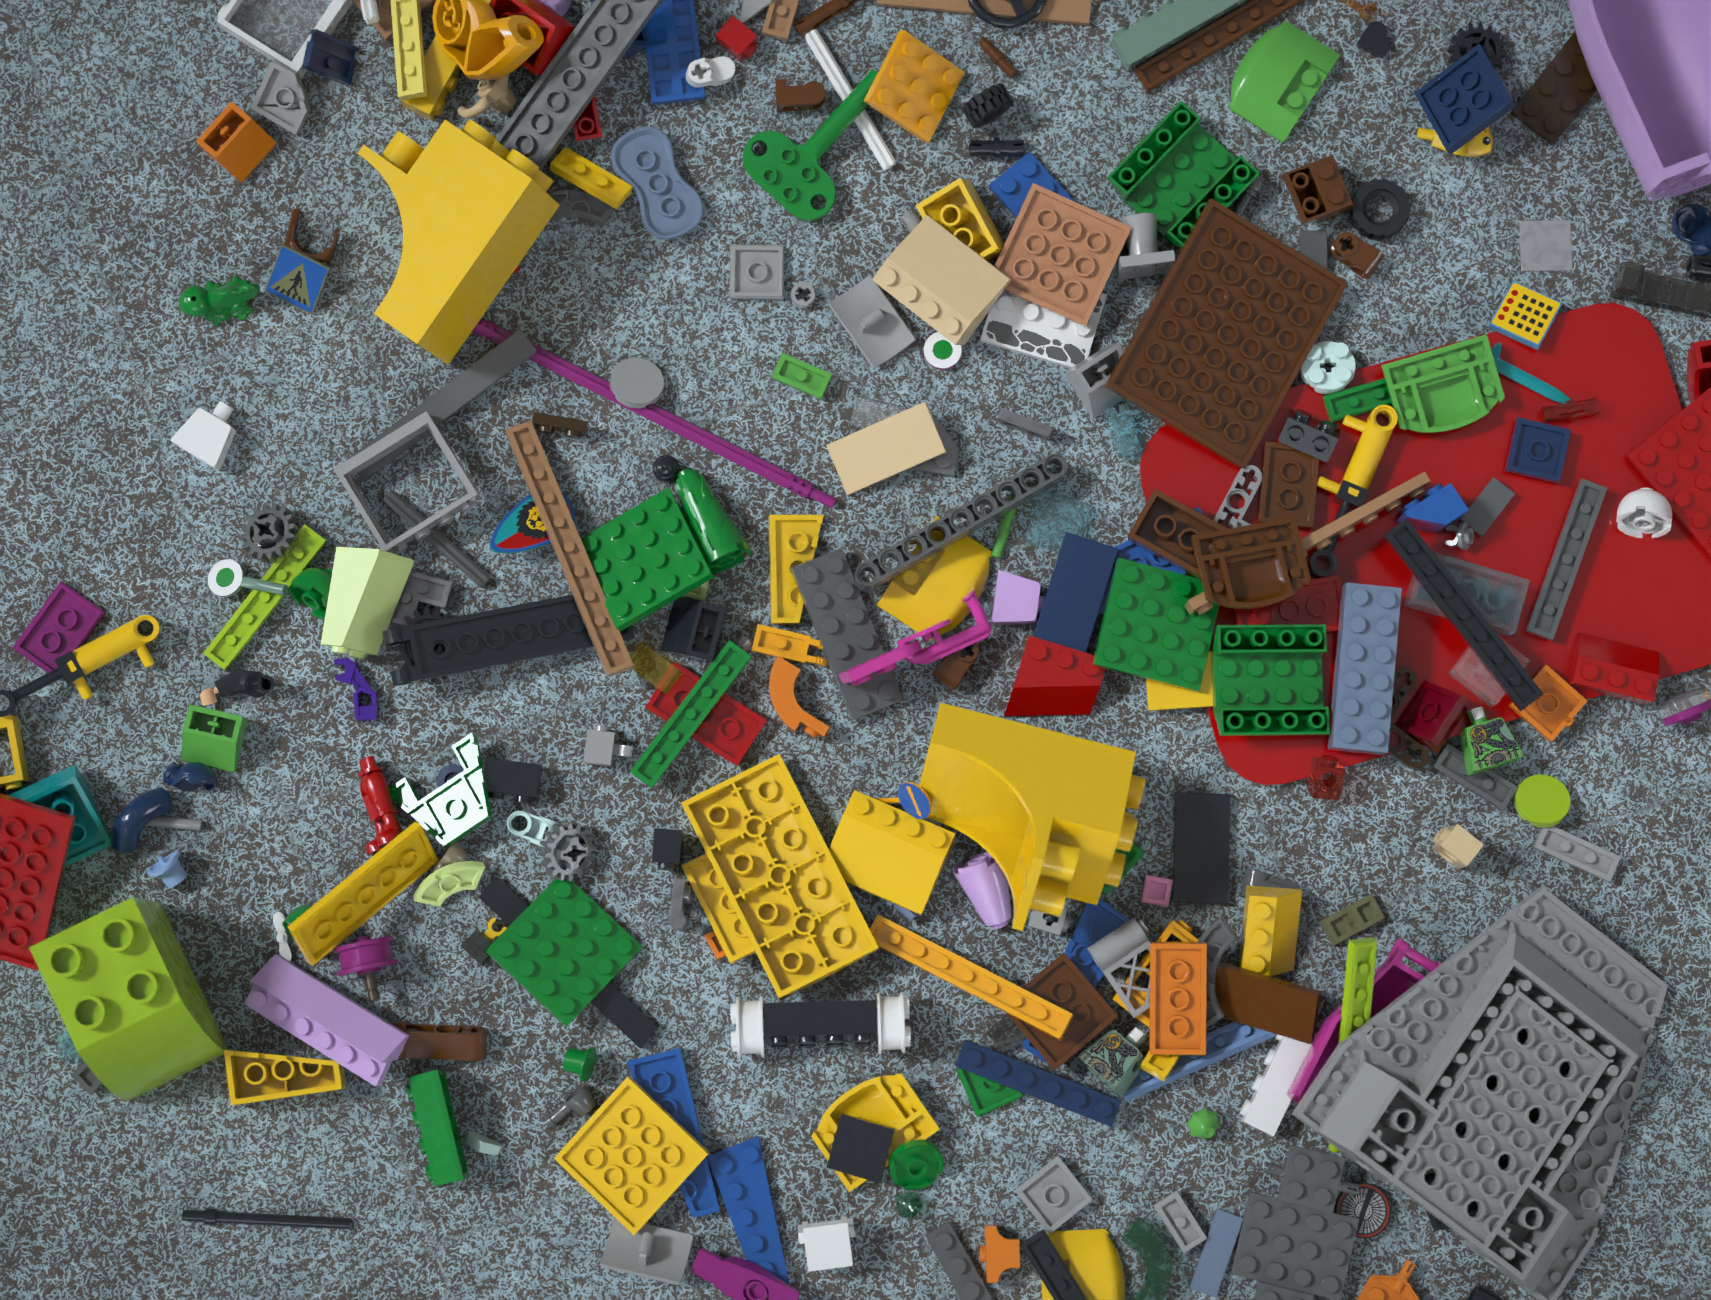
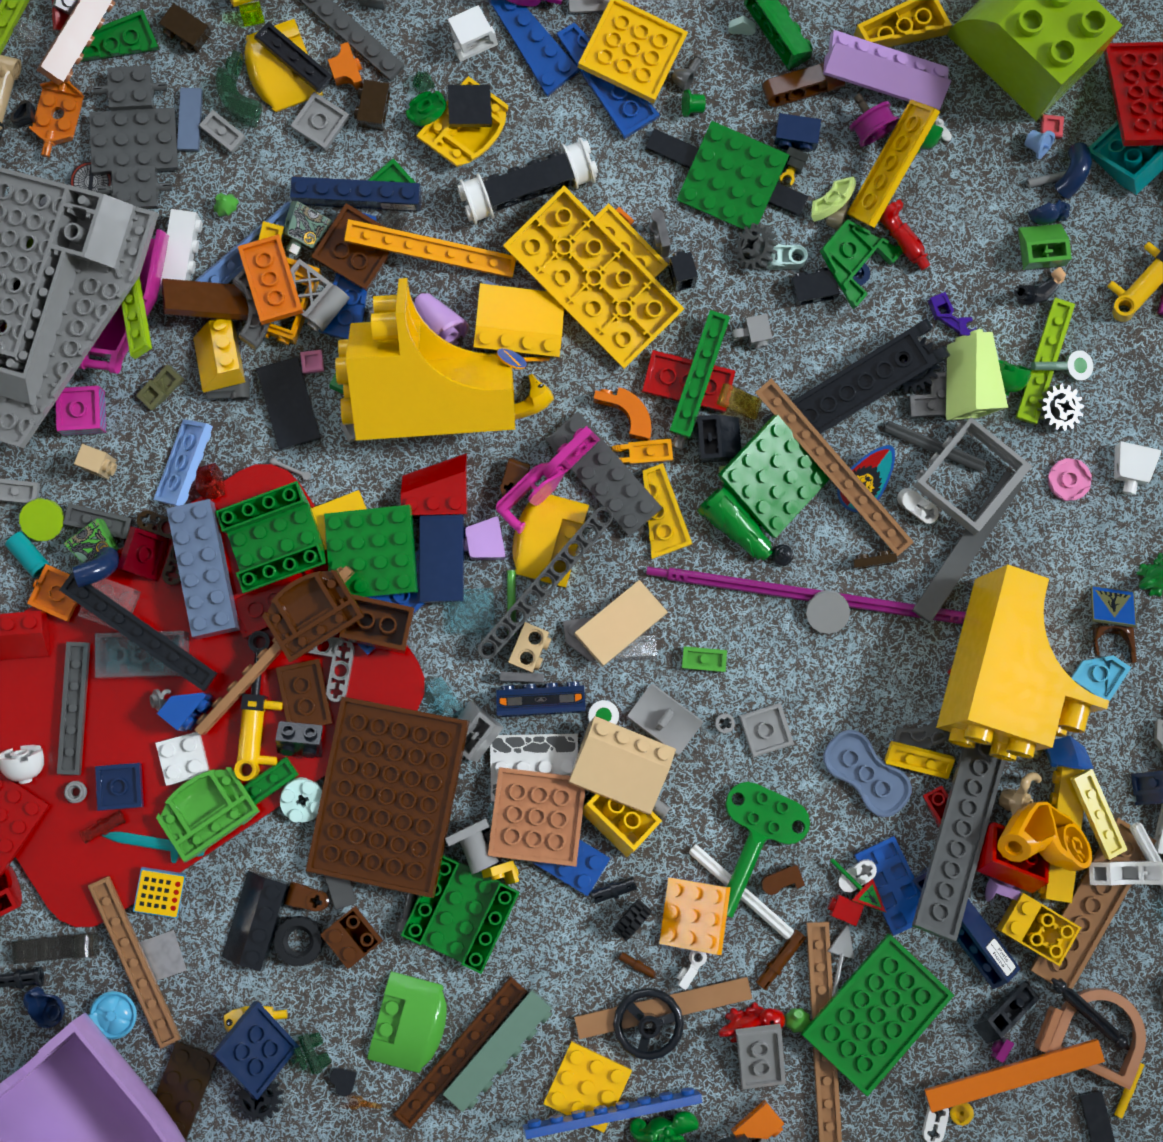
camera: 160 degrees right, 0 degrees up
(143, 886) = (1053, 124): none -> coral tile
(290, 446) = (1063, 478): none -> bright pink tile
(342, 205) = (1101, 675): none -> medium azure plate
(415, 121) = (1068, 753): none -> blue slope
(464, 980) = (797, 132): none -> dark blue brick
(476, 464) = (910, 499): none -> white piece
(706, 45) = (867, 895): none -> piece
(896, 750) = (538, 399): none -> yellow animal
(943, 26) = (687, 974): none -> white plate
(980, 1193) = (373, 105): none -> dark brown brick
(1009, 459) = (524, 646): none -> tan brick
(1011, 387) = (540, 701): none -> dark blue slope
(1116, 209) = (505, 869): none -> yellow bracket
(1207, 753) = (306, 475): none -> light grey hinge
(1351, 811) = (183, 462): none -> light blue plate
(1401, 68) = (315, 1063): none -> clear green hips
(1423, 248) = (255, 921): none -> black slope
(1454, 459) = (182, 758): none -> white plate
(1456, 915) = (81, 411): none -> dark pink container
(1487, 506) = (146, 730): dark grey tile -> none
(1487, 703) = (98, 568): none -> dark blue cylinder
(1571, 764) = (26, 554): none -> teal pin
(1576, 247) = (134, 962): none -> medium nougat tile
(1594, 454) = (68, 792): none -> light grey plate
(1618, 195) = (113, 1014): none -> medium azure piece

